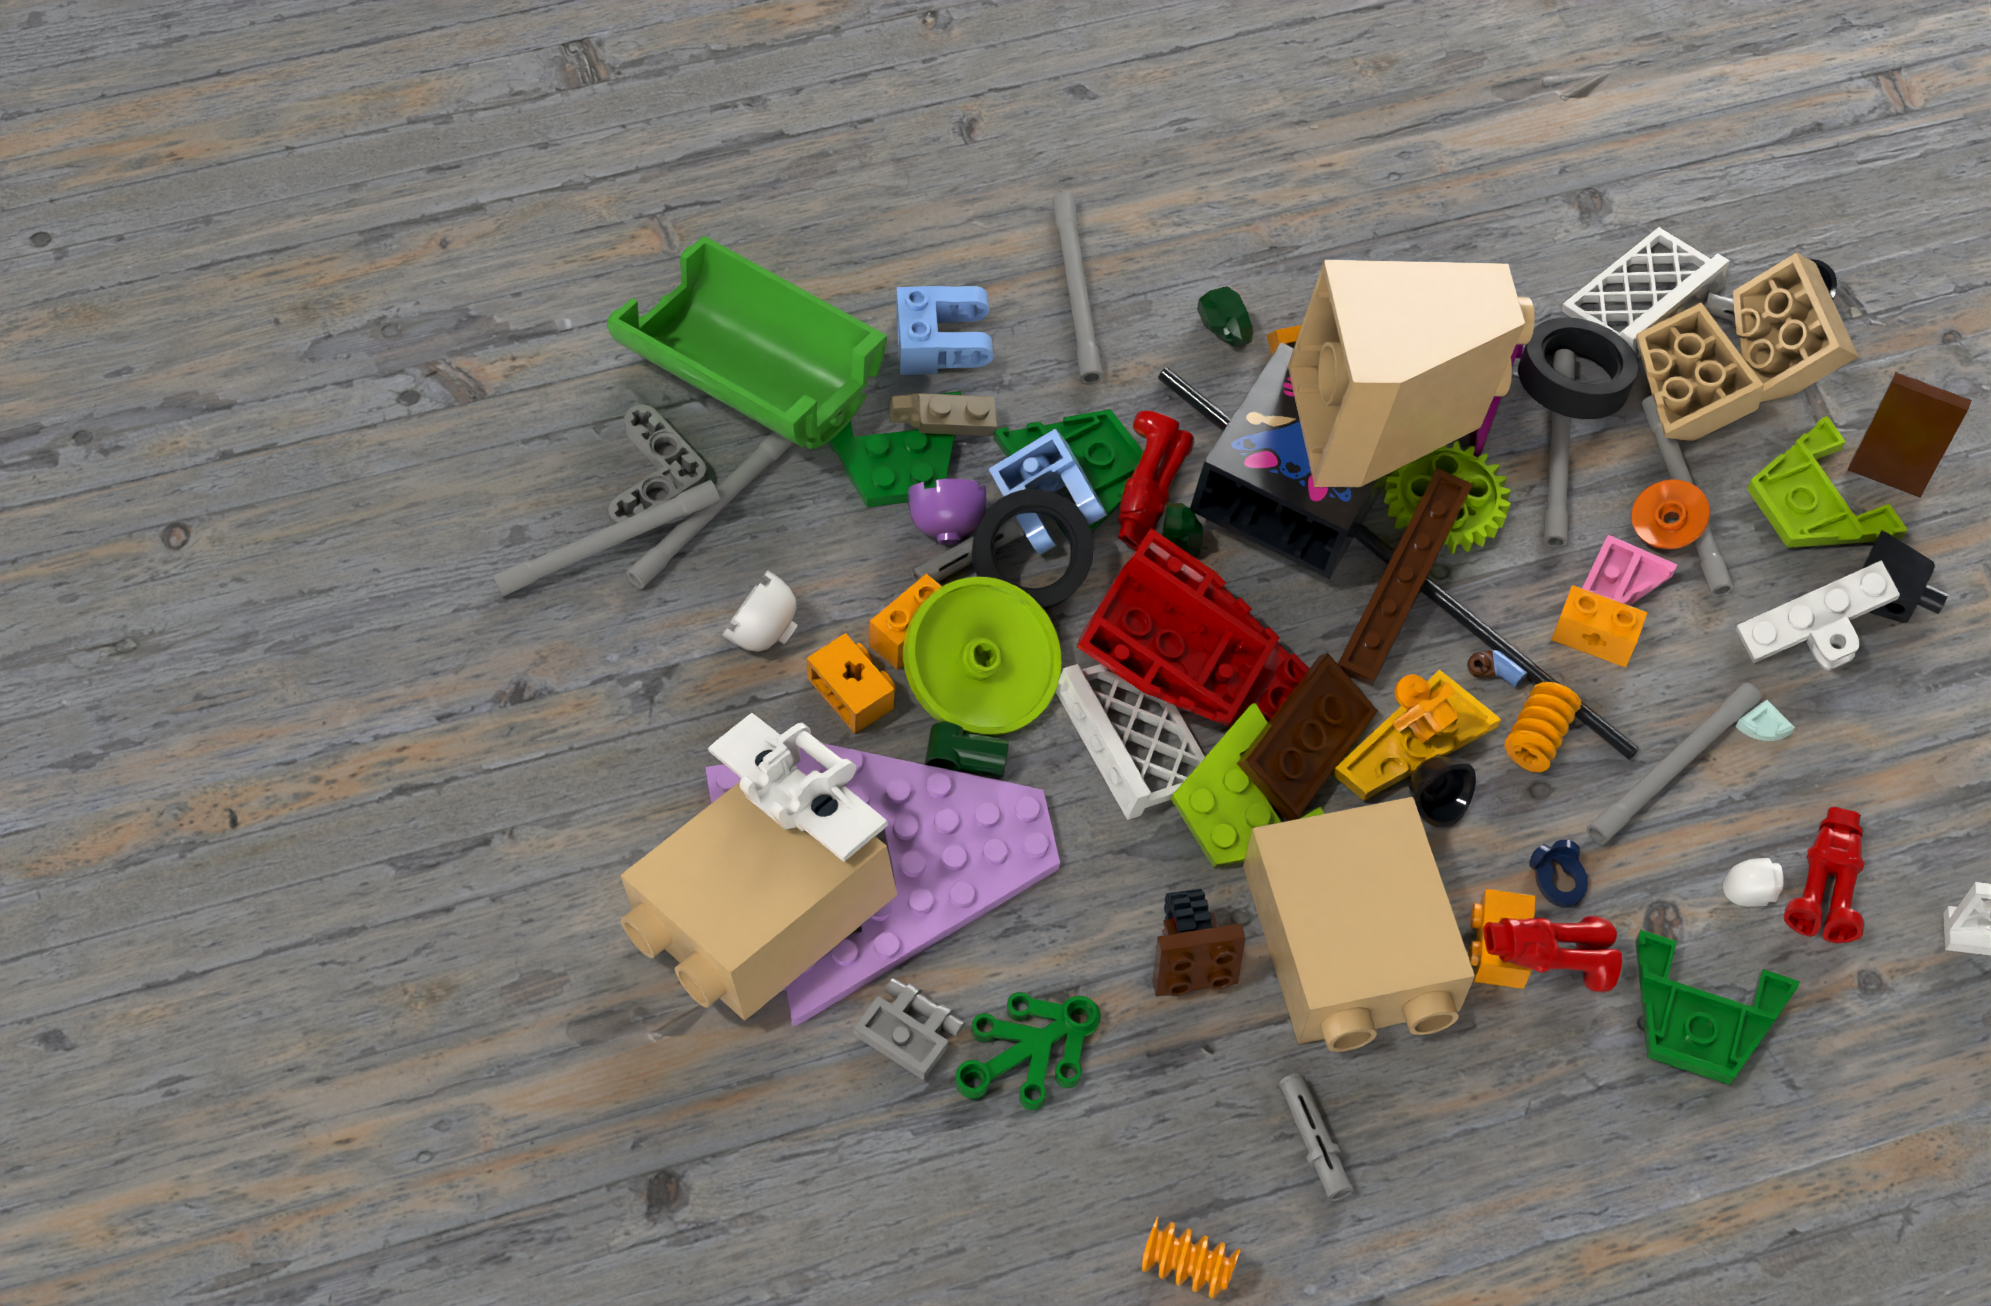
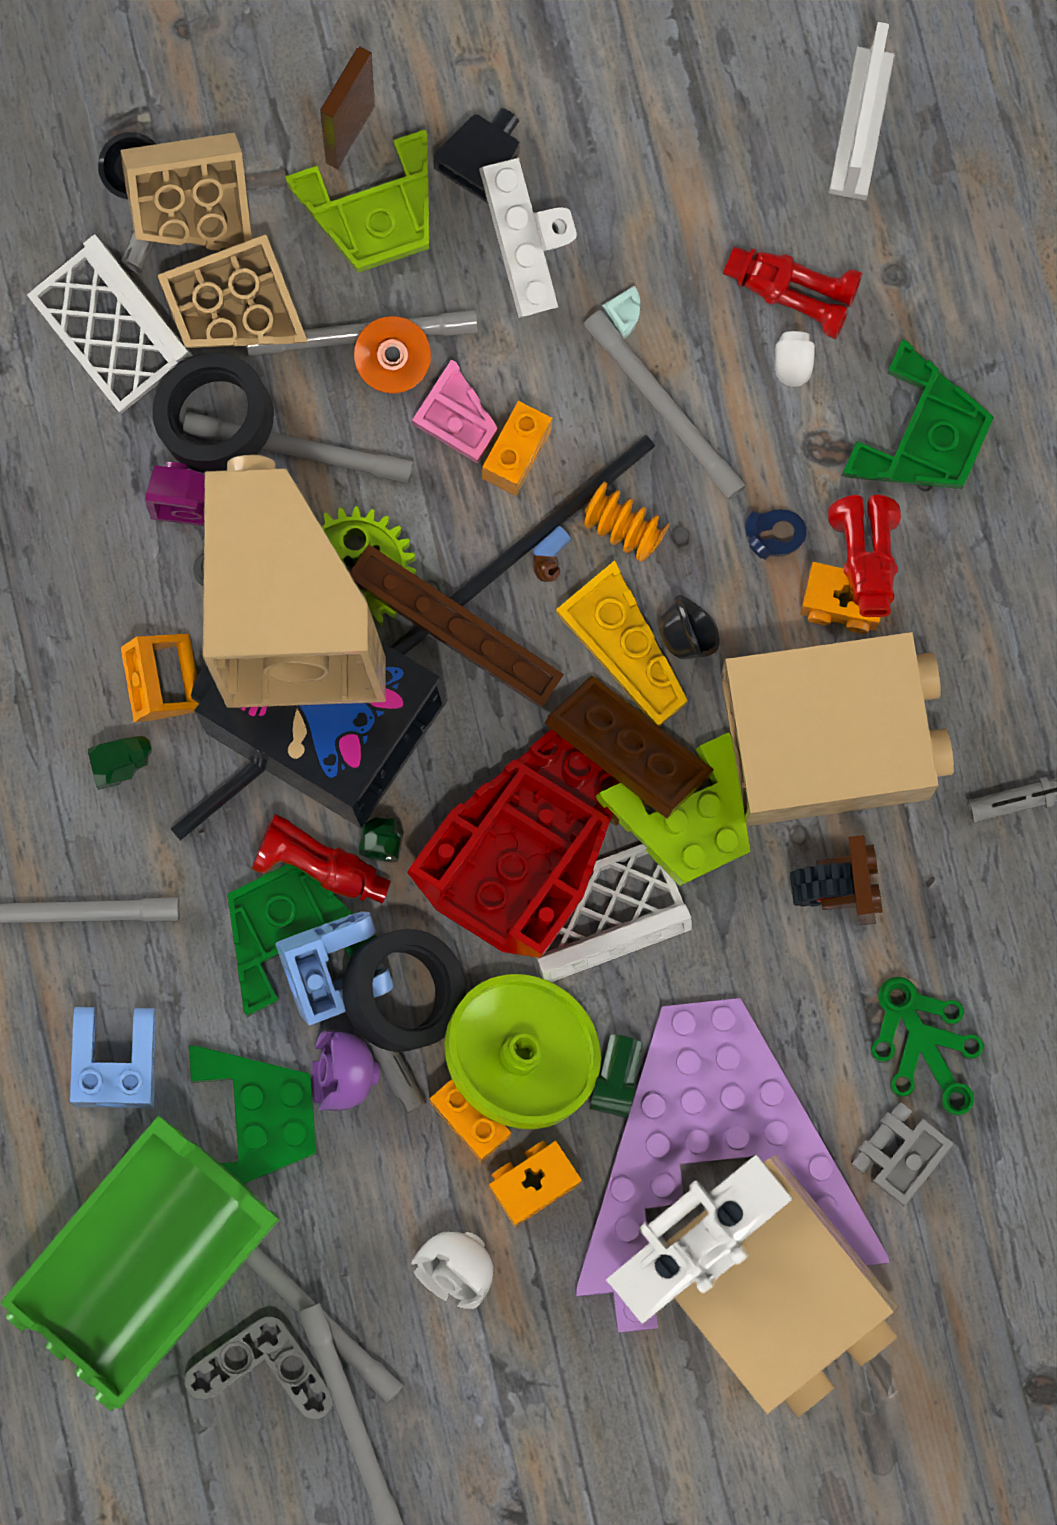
camera: 85 degrees left, 20 degrees up
(945, 413) = (224, 1061): dark tan hinge -> none
(1427, 711) = (619, 631): light orange hips -> none

